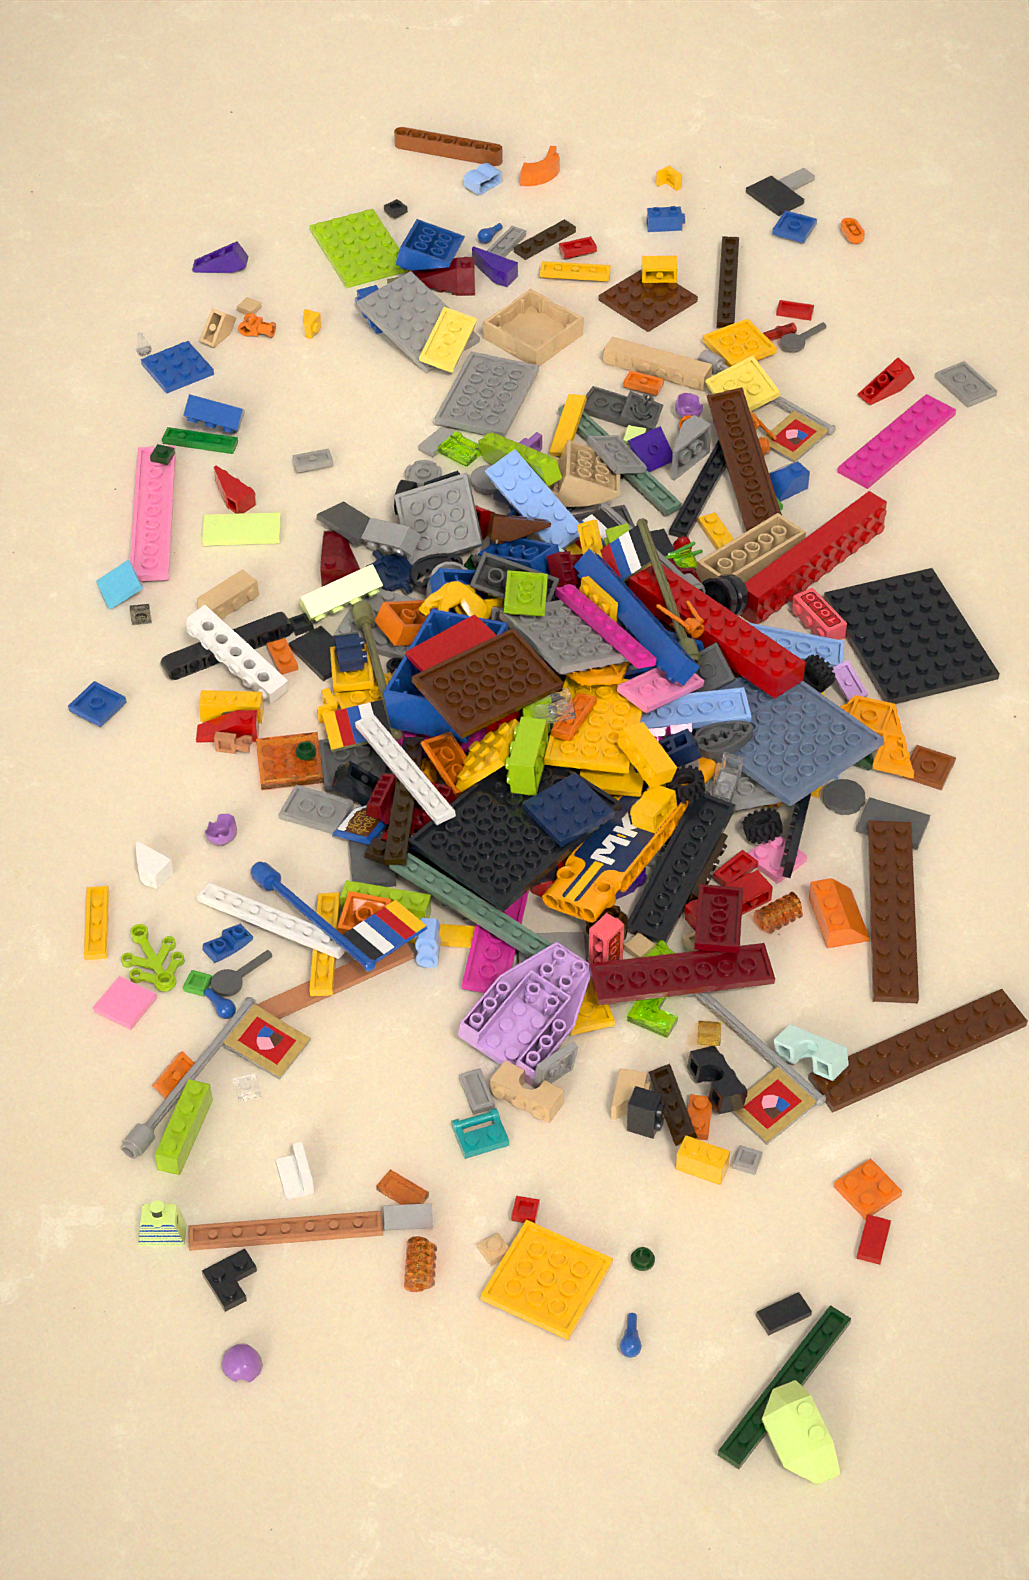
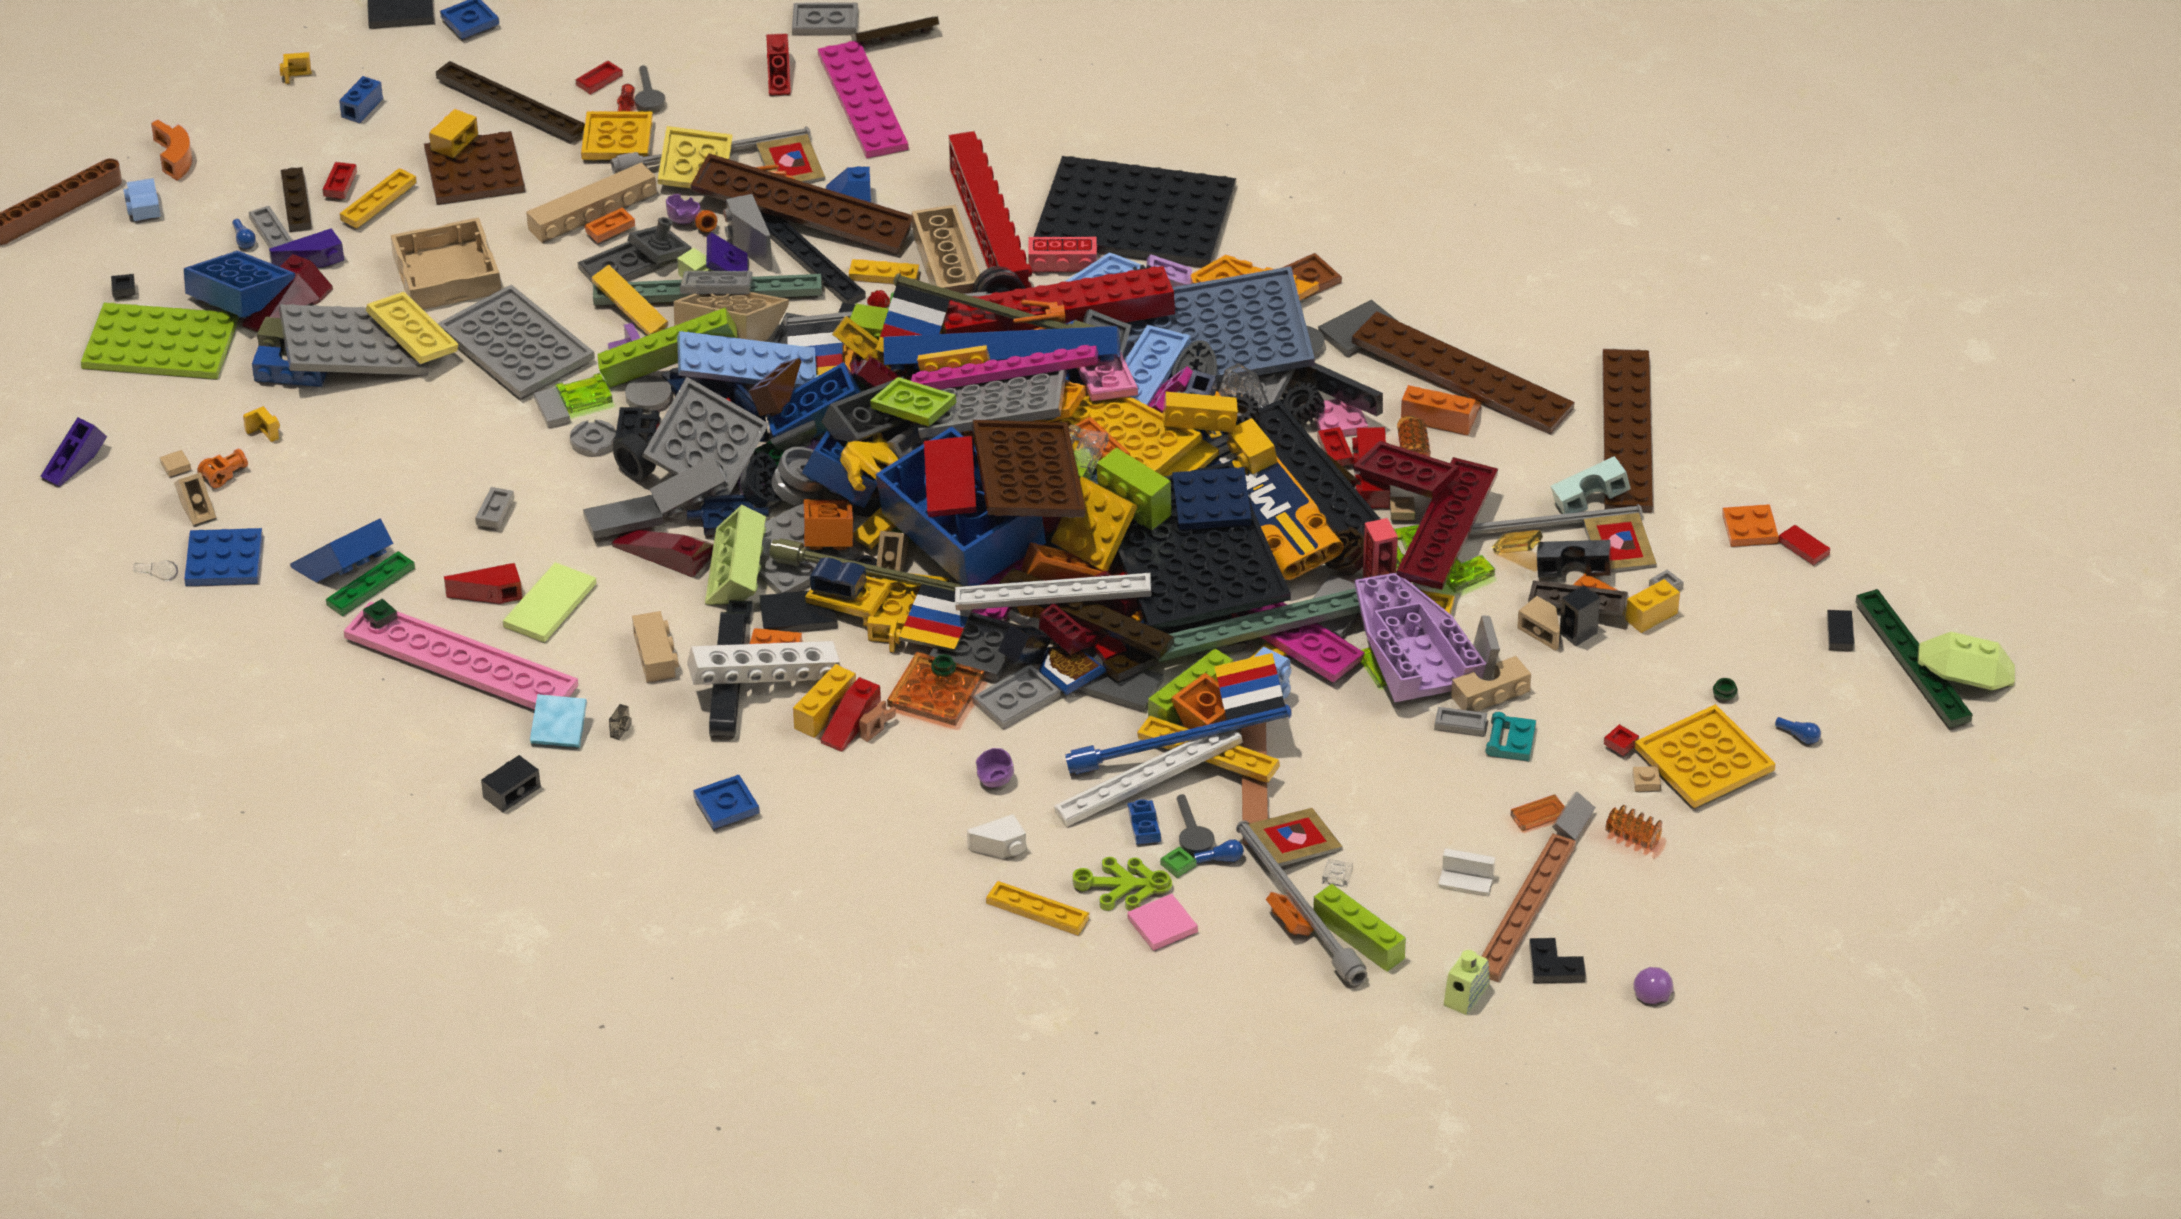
camera: 60 degrees left, 5 degrees down
(44, 590) = (510, 783): none -> black brick
(978, 418) = (904, 29): none -> dark brown plate

